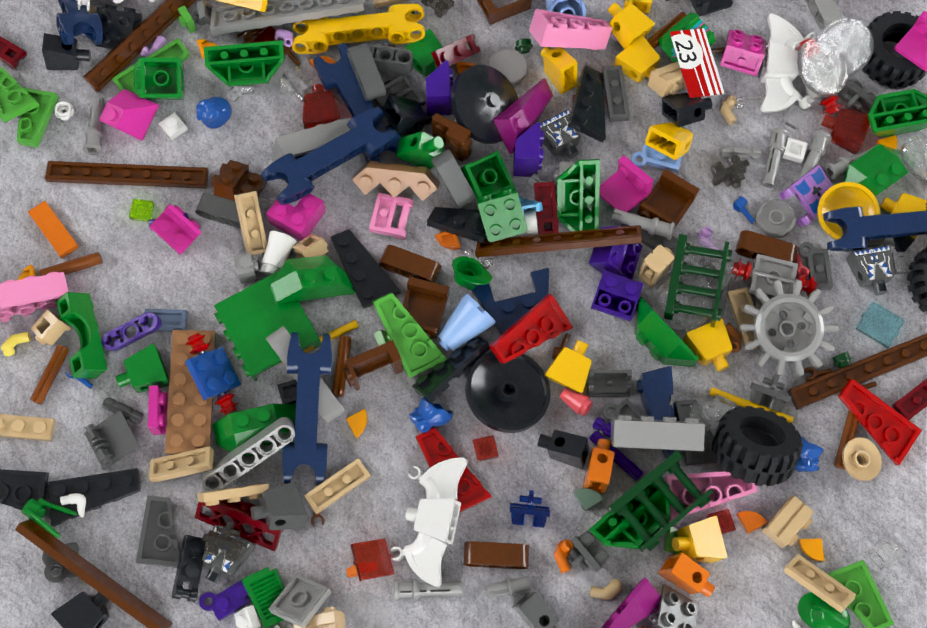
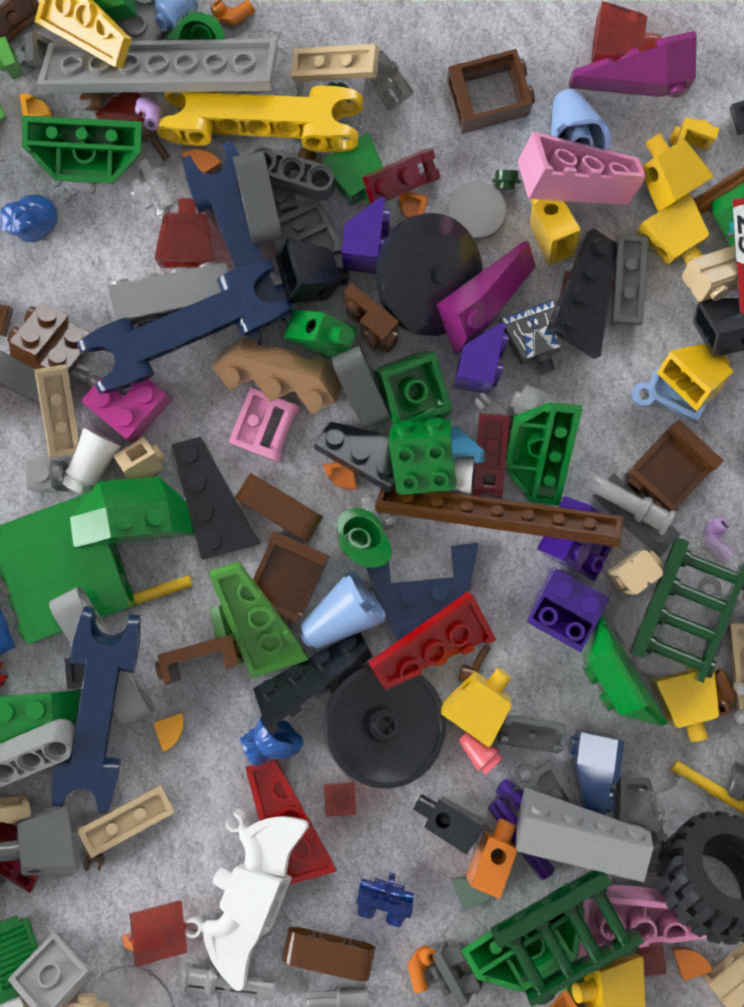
camera: 15 degrees right, 15 degrees up
(339, 376) = (159, 641): dark orange axle -> none
(626, 186) = (614, 437): dark pink bracket -> none

